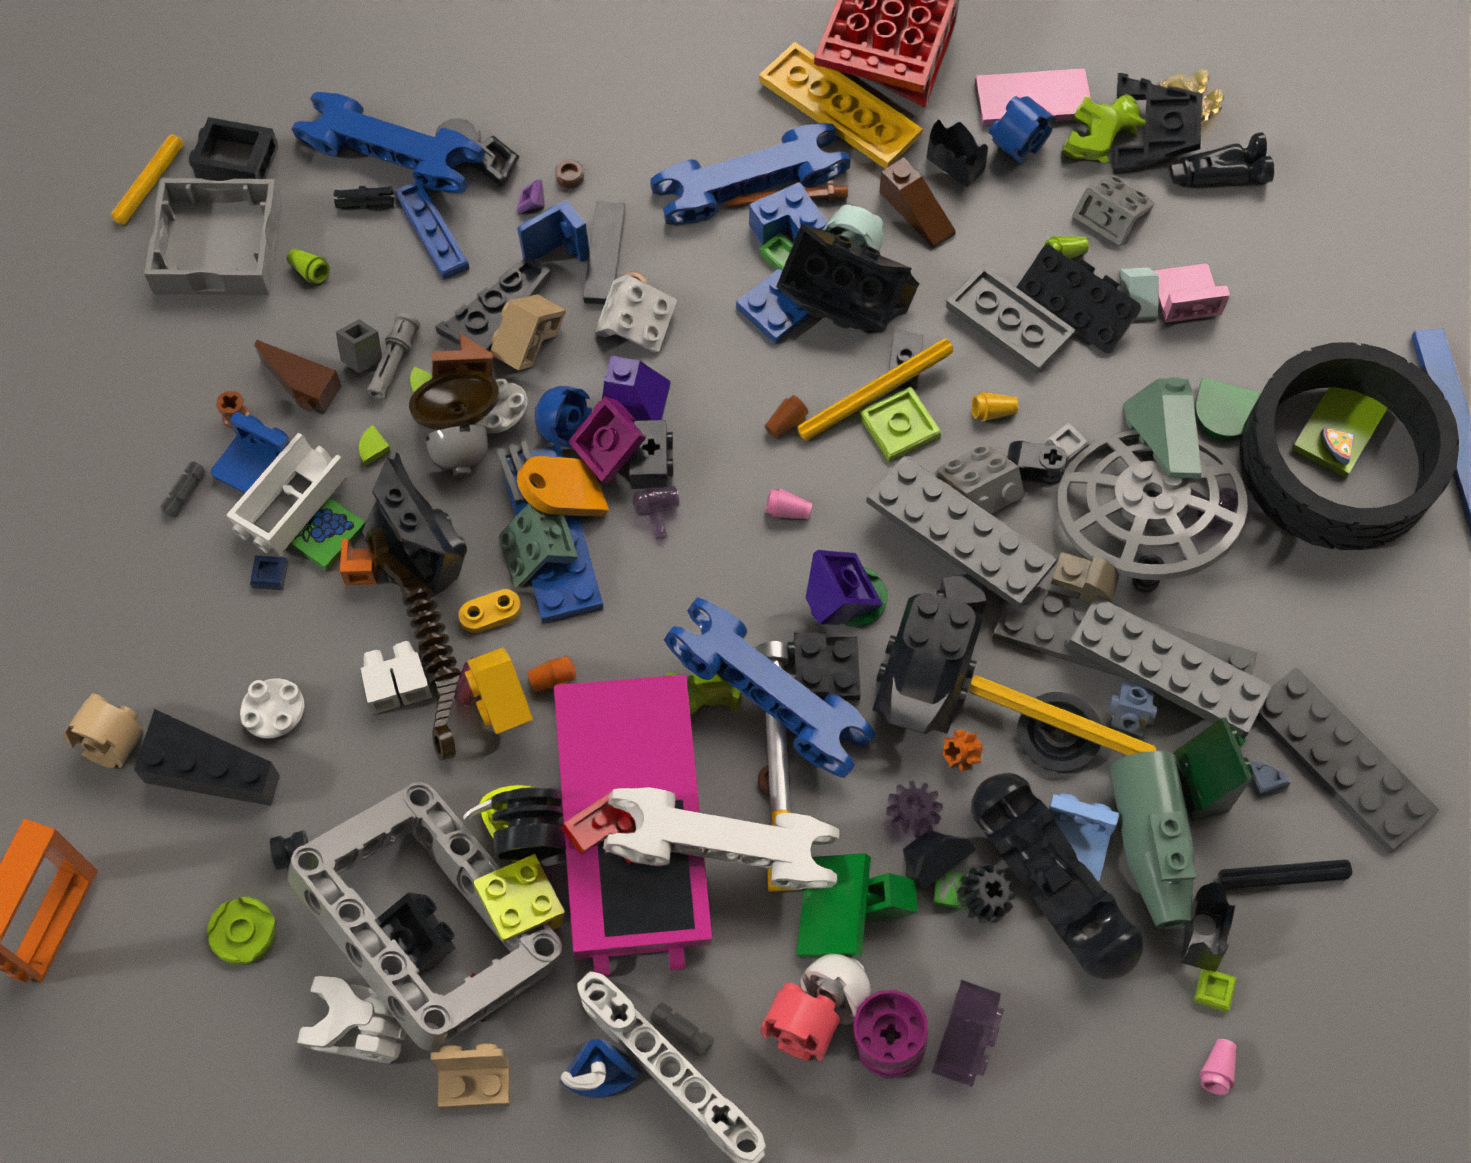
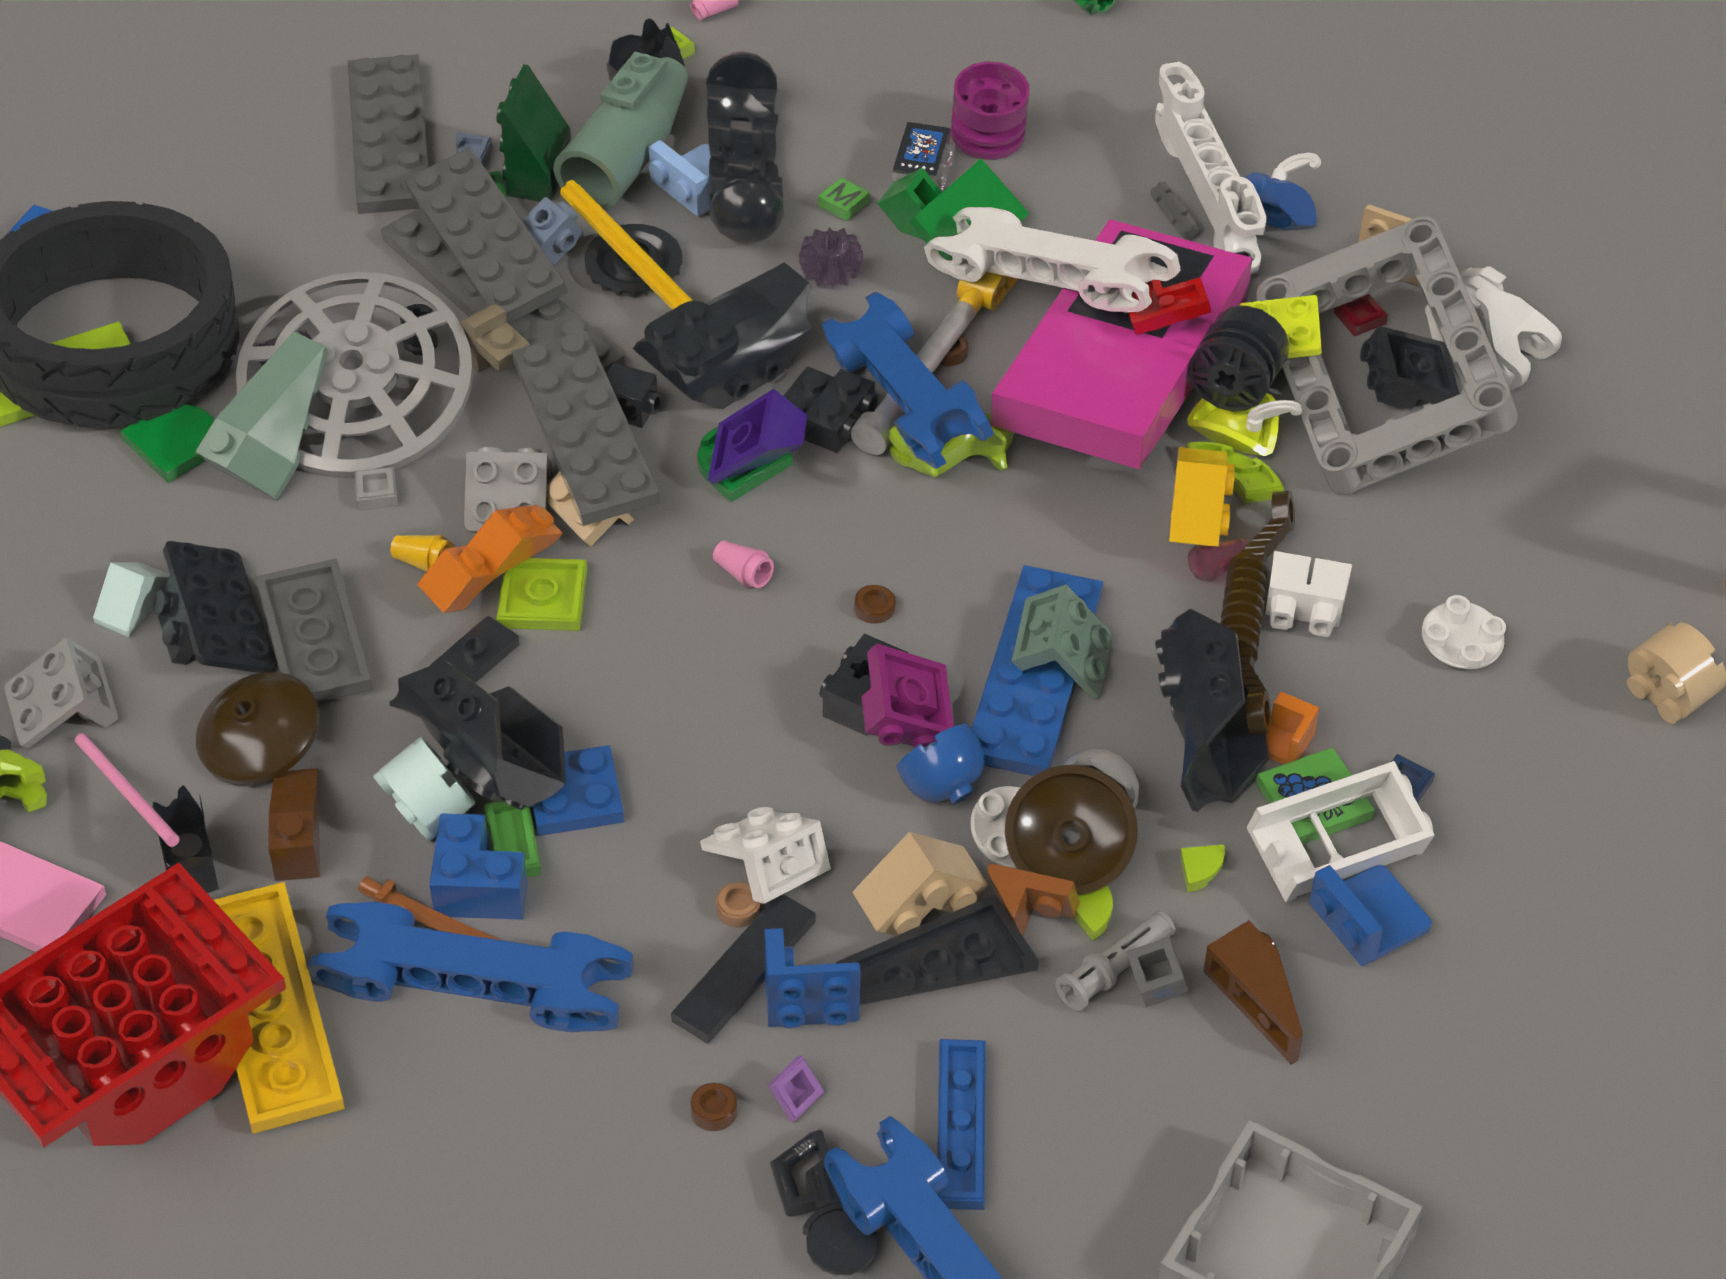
camera: 150 degrees left, 15 degrees down
(182, 489) = (1476, 926): dark grey axle -> none
(198, 762) = (1567, 603): black wedge -> none
(228, 404) = (1368, 984): dark orange bush -> none
(241, 931) = (1582, 461): lime tile -> none
(283, 848) = (1500, 492): black wheel -> none
(310, 266) = (1168, 1142): lime cone -> none
(363, 197) = (1034, 1211): black pin -> none
(490, 774) = (1252, 479): none -> lime tile
(491, 613) = (1145, 619): yellow plate -> none
(514, 452) = (1039, 695): dark grey tile -> none
(552, 673) = (1122, 521): orange piece -> none
(563, 488) = (1000, 675): light orange tile -> none
(636, 388) = (836, 766): dark purple slope -> none
(654, 502) = (896, 631): clear purple piece -> none
(685, 528) = (874, 604): none -> reddish brown tile
(787, 416) = (668, 652): dark orange cone -> none
(801, 1022) = (1065, 150): coral brick -> none
(841, 981) = (1010, 161): white cylinder -> none
(875, 389) = (542, 624): yellow axle -> none
(913, 956) = (925, 148): none -> brick
(934, 855) = (848, 210): black slope -> none
(941, 413) = (499, 545): none -> orange arch
(962, 750) = (742, 268): orange gear -> none
(969, 1030) = (912, 86): clear purple brick -> none
(985, 242) = (257, 728): none -> dark brown dish
(986, 893) = (818, 168): black gear -> none
(1015, 157) = (127, 790): none -> bright pink axle
(1022, 128) = (78, 820): blue brick -> none
(1035, 461) = (432, 473): black piece -> none
(1069, 245) = (171, 677): lime cone -> none
(1190, 293) = (83, 551): bright pink bracket -> none
(1285, 874) = (557, 91): black axle -> none
(1338, 444) = (102, 336): tile -> none

